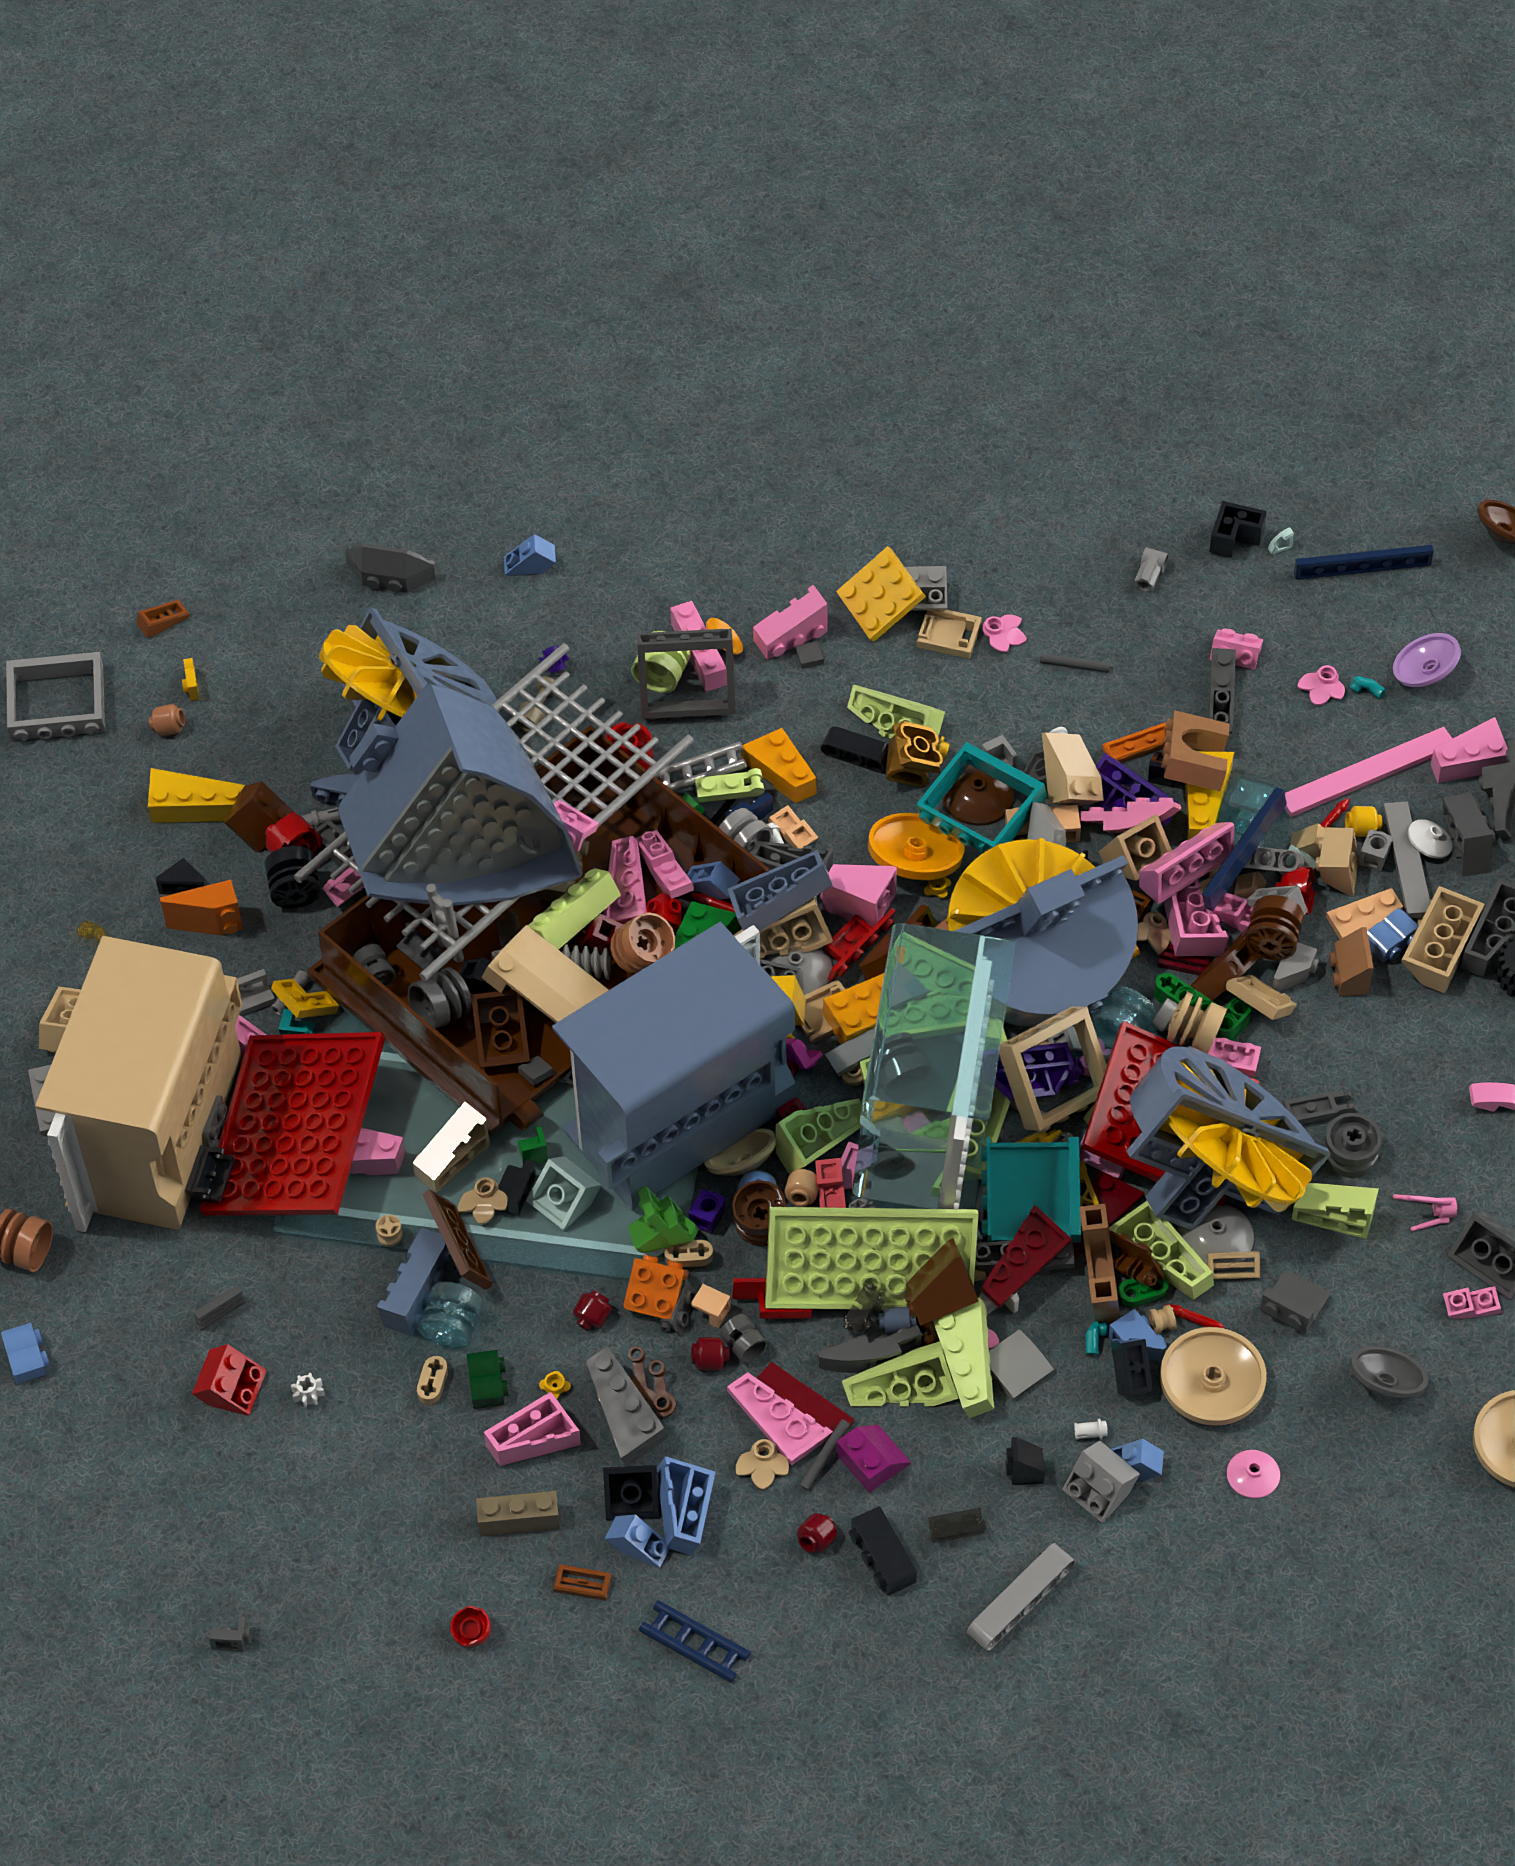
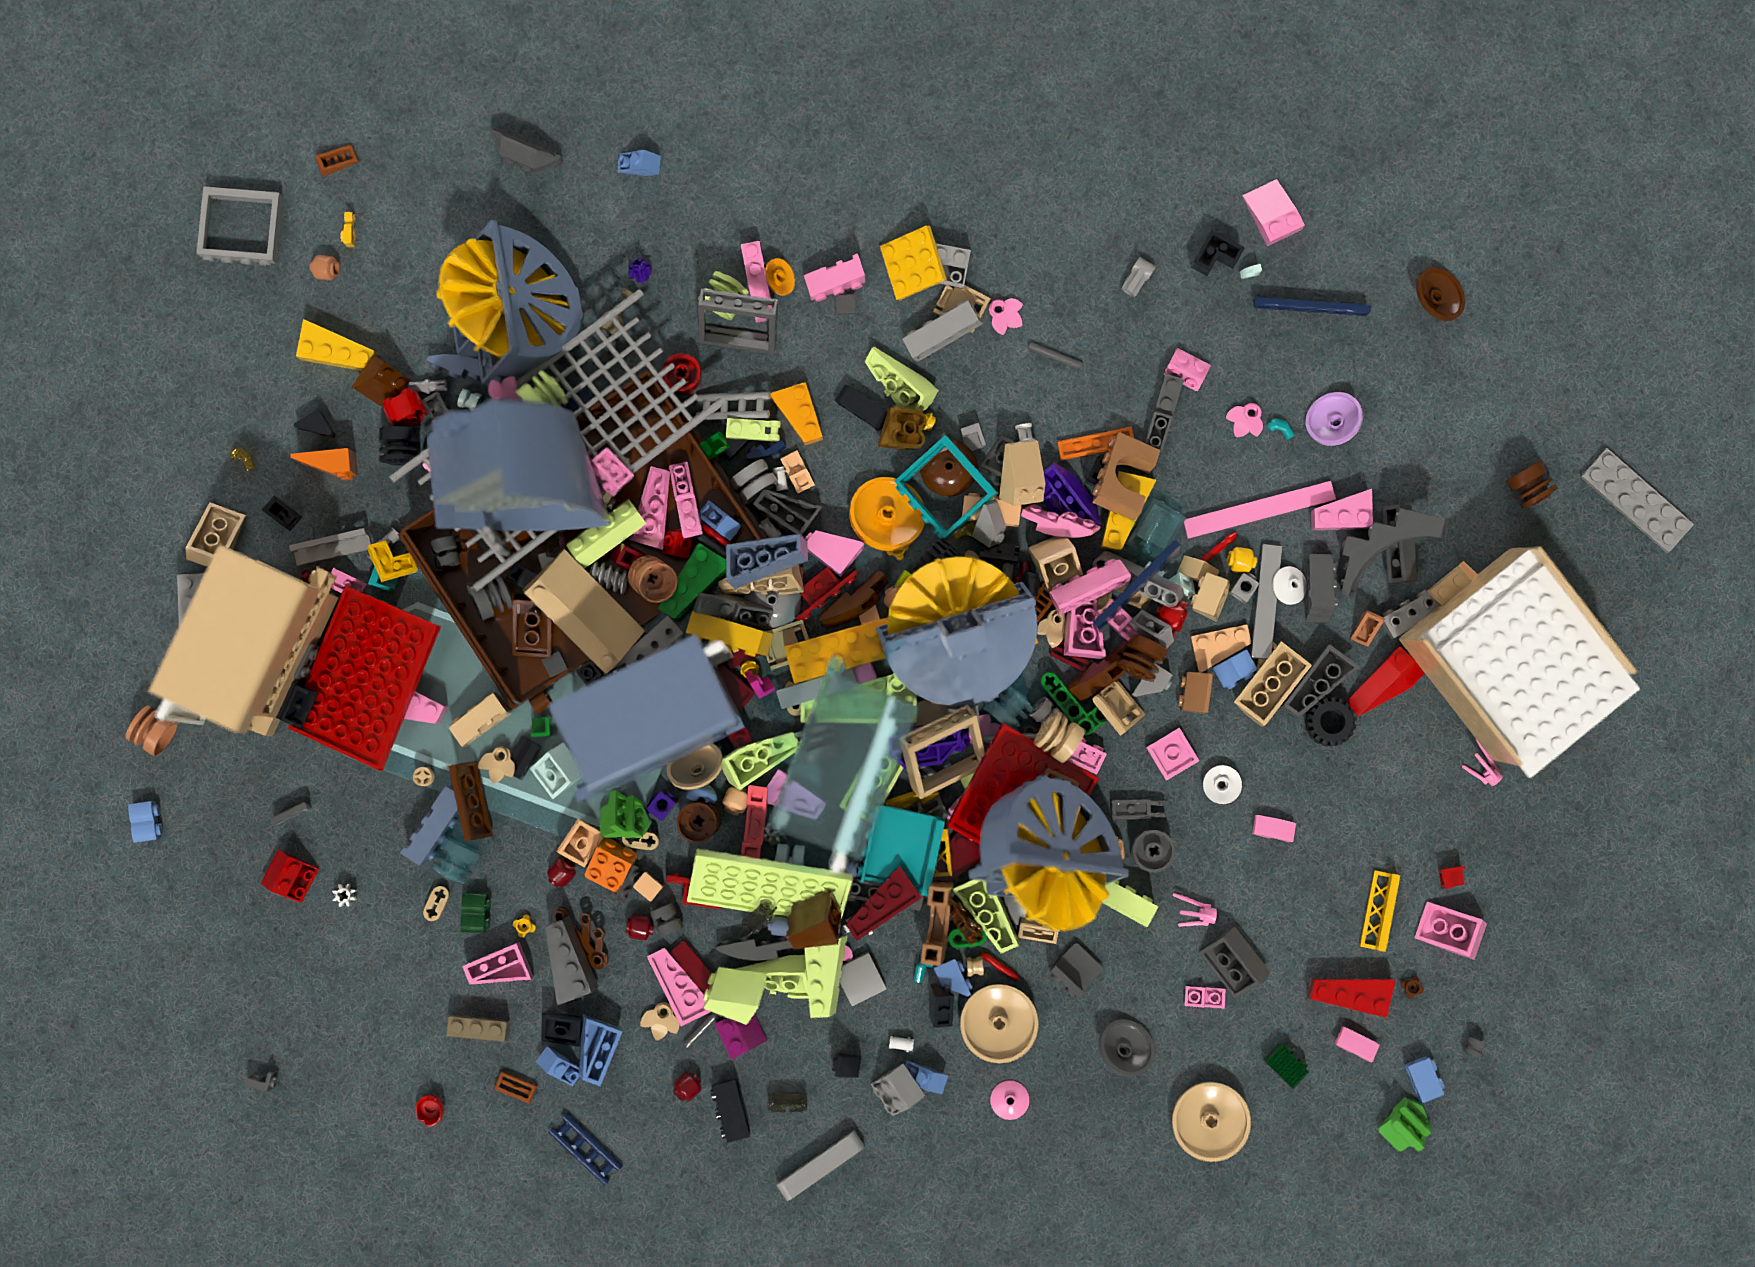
camera: 15 degrees right, 30 degrees up
(609, 1266) = (580, 842): none -> light nougat slope
(856, 1397) = (734, 993): none -> yellowish green slope
(933, 651) = (942, 330): none -> light grey brick
(1291, 485) = (1273, 212): none -> bright pink slope
(1343, 1040) = (1172, 754): none -> bright pink plate
(1417, 1051) = (1232, 784): none -> white dish

